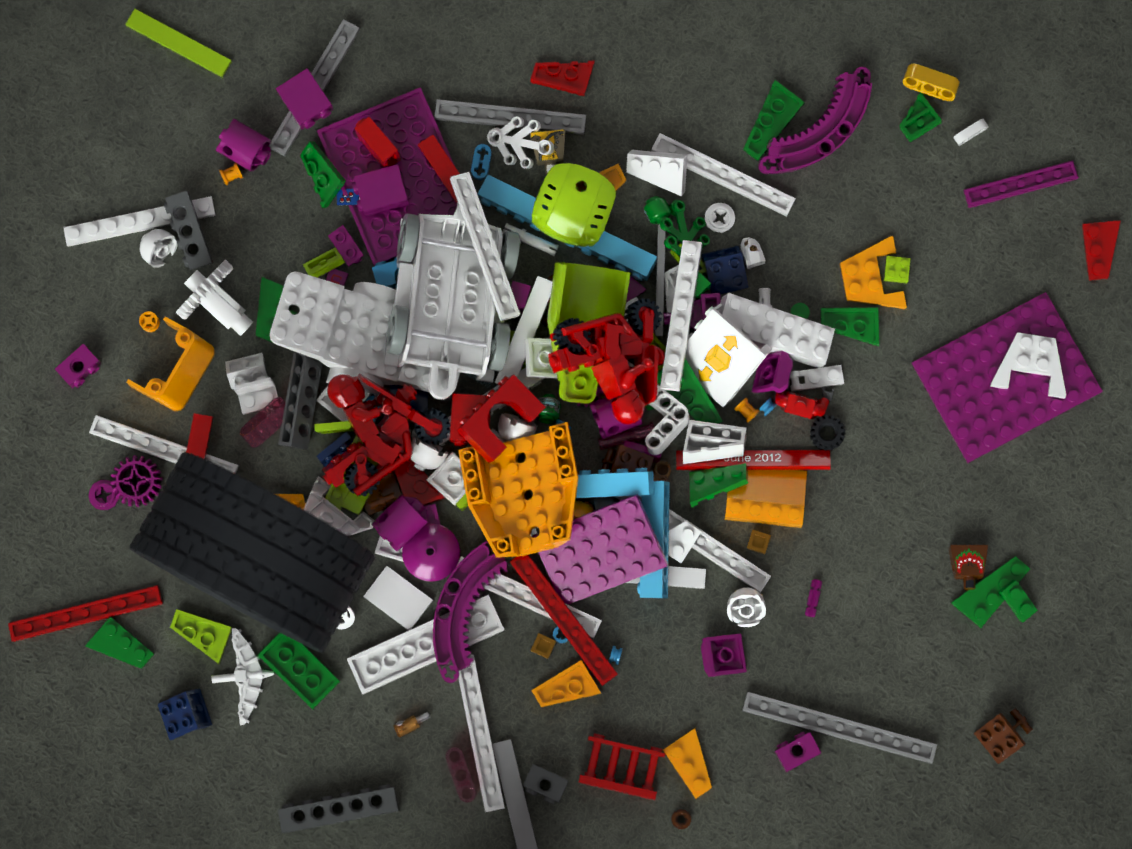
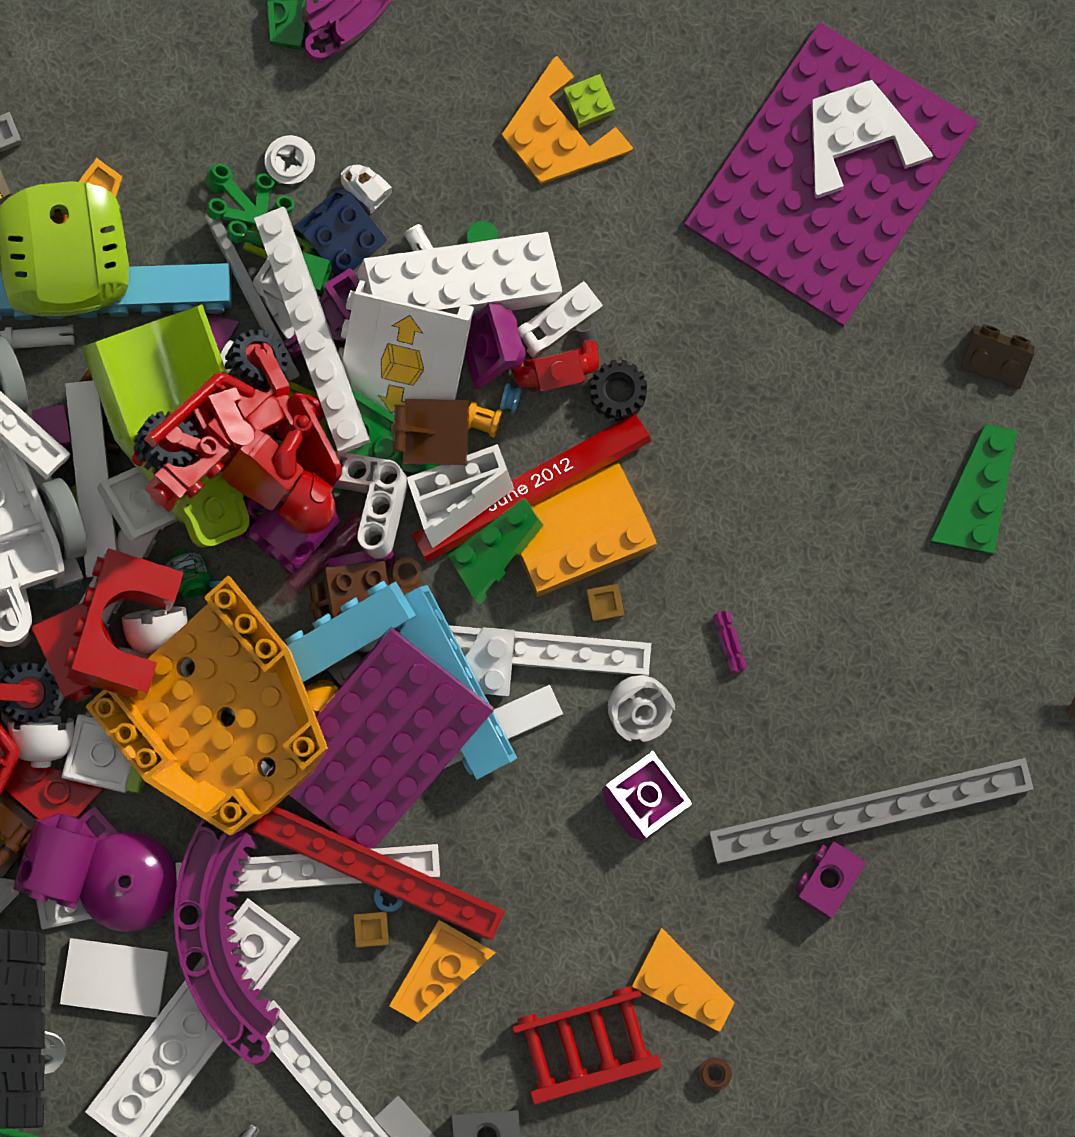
camera: 40 degrees left, 0 degrees up
(615, 655) = (486, 884): dark azure bush -> none
(657, 210) = (190, 196): green head -> none
(659, 168) = (162, 134): white wedge -> none
(715, 402) = (431, 431): none -> reddish brown plate
(727, 176) = (260, 95): white plate -> none
(853, 322) = (569, 210): green wing -> none
(968, 563) = (925, 470): reddish brown torso -> none
(1018, 600) = (1025, 486): green plate -> none
(1042, 523) = (998, 355): none -> dark brown bracket

